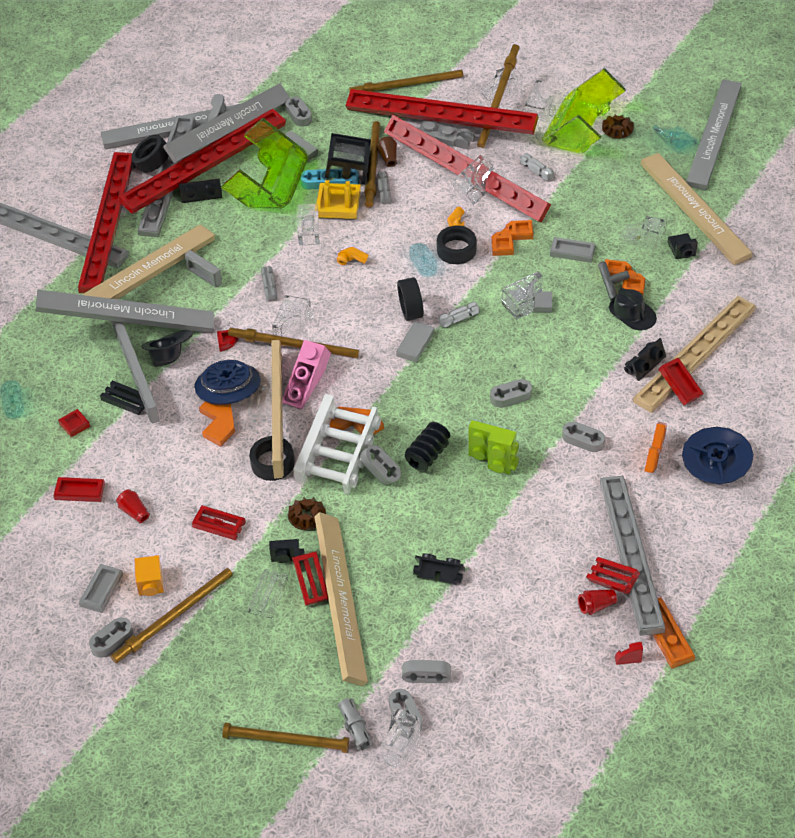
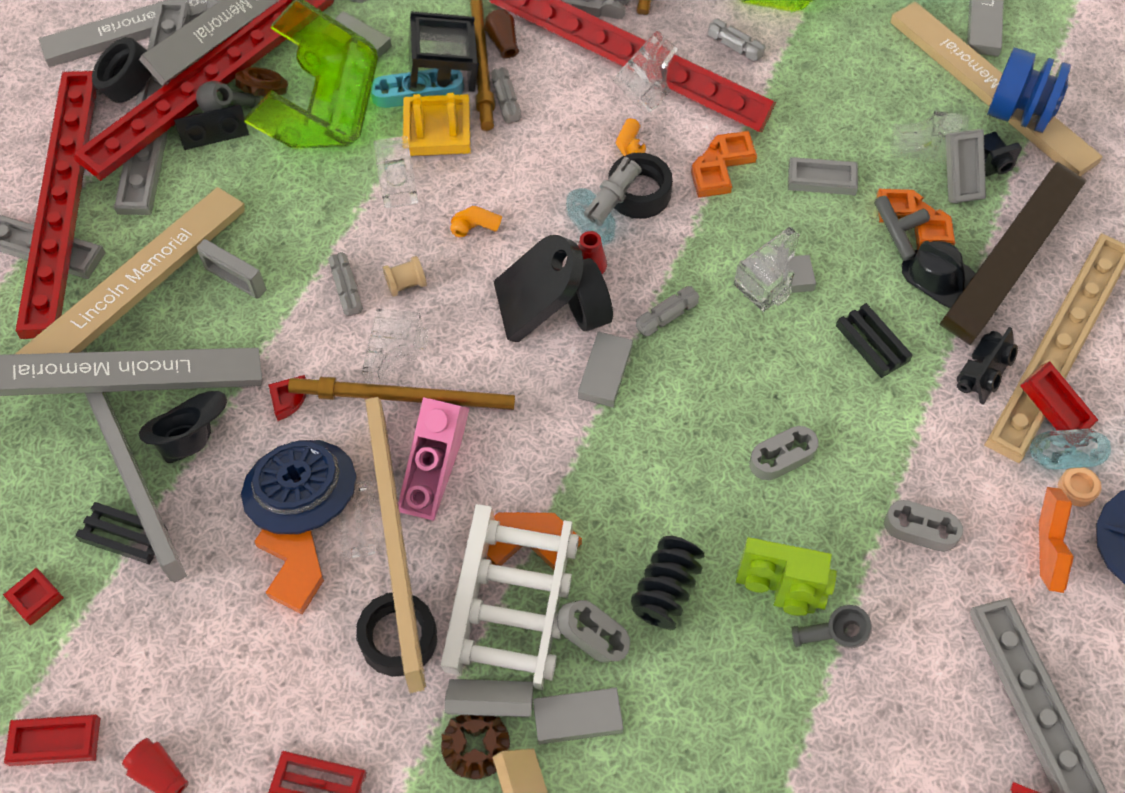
camera: 10 degrees left, 10 degrees up
(200, 173) = (208, 100): none -> dark grey bar
(231, 166) = (260, 81): none -> reddish brown gear
(304, 281) = (404, 276): none -> tan bush
(316, 491) = (489, 698): none -> light grey tile
(365, 507) = (578, 716): none -> light grey tile
(381, 290) = (538, 285): none -> black tile
(418, 272) = (592, 247): none -> red cone
(436, 244) = (612, 191): none -> light grey pin
(520, 478) = (836, 628): none -> dark grey bar
(587, 337) = (878, 336): none -> black tile
(659, 249) = (965, 165): none -> light grey tile
(677, 300) = (1012, 253): none -> dark brown beam
(680, 399) = (1070, 457): none -> clear light blue beam
(682, 426) = (1080, 486): none -> light nougat tile
(707, 208) = (1029, 90): none -> blue wheel

